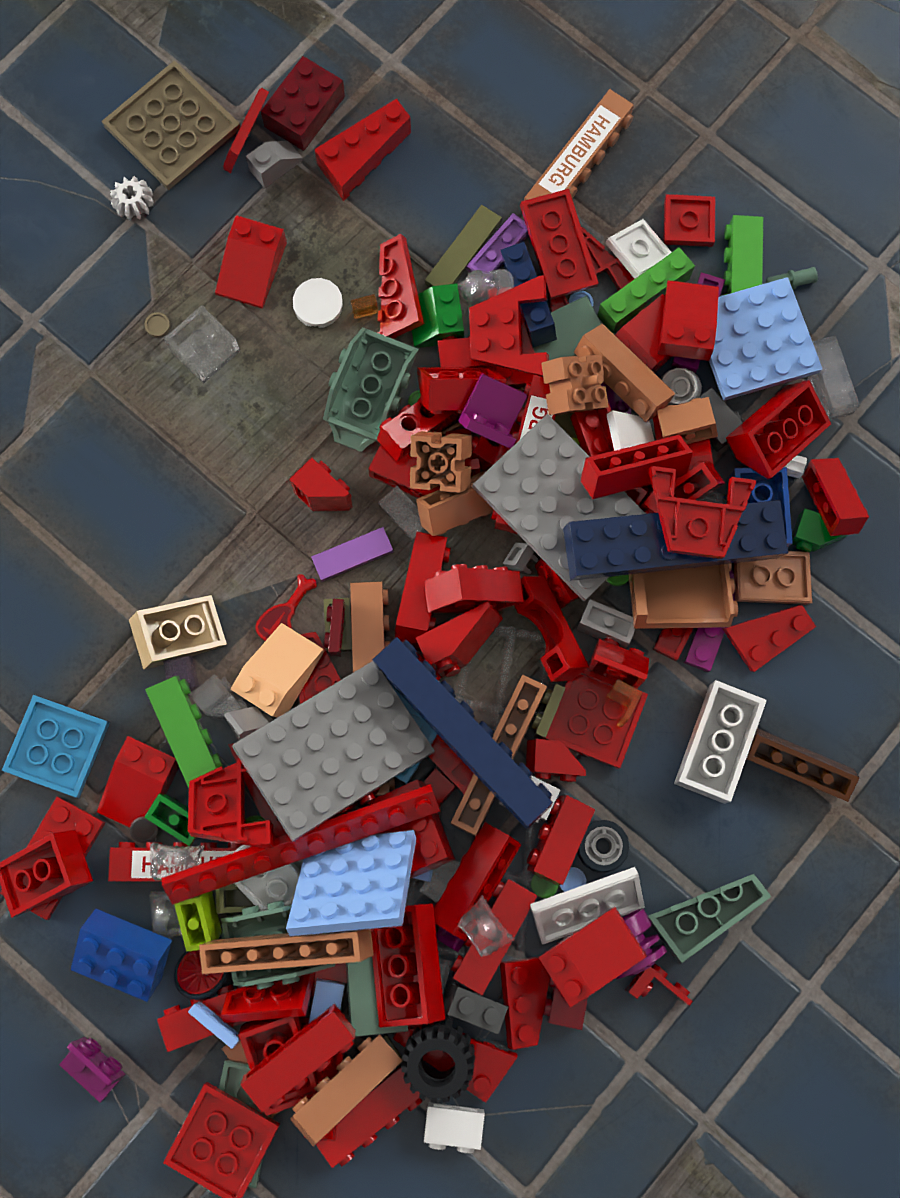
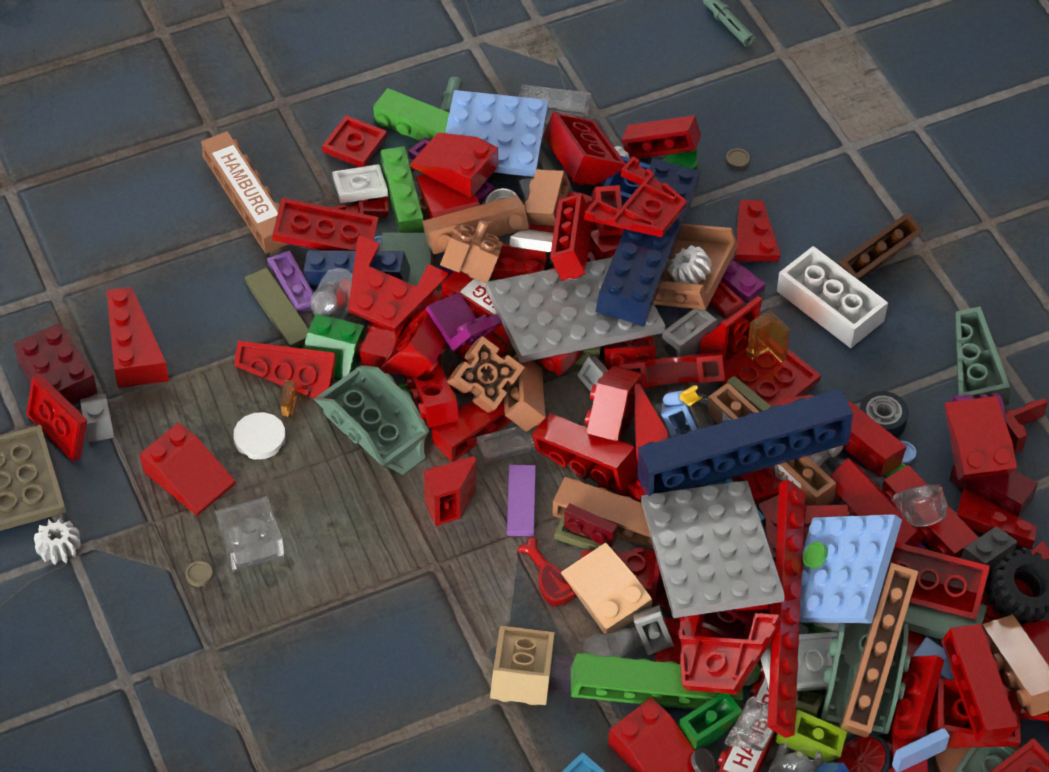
camera: 65 degrees left, 25 degrees down
(361, 850) = (815, 555): none -> bright green piece
(483, 664) = (678, 411): none -> light blue torso
(576, 908) = (931, 439): white tile -> none
(673, 592) = (690, 265): none -> white gear
(775, 580) = (711, 206): nougat tile -> none
(862, 580) = (737, 158): none -> dark tan piece

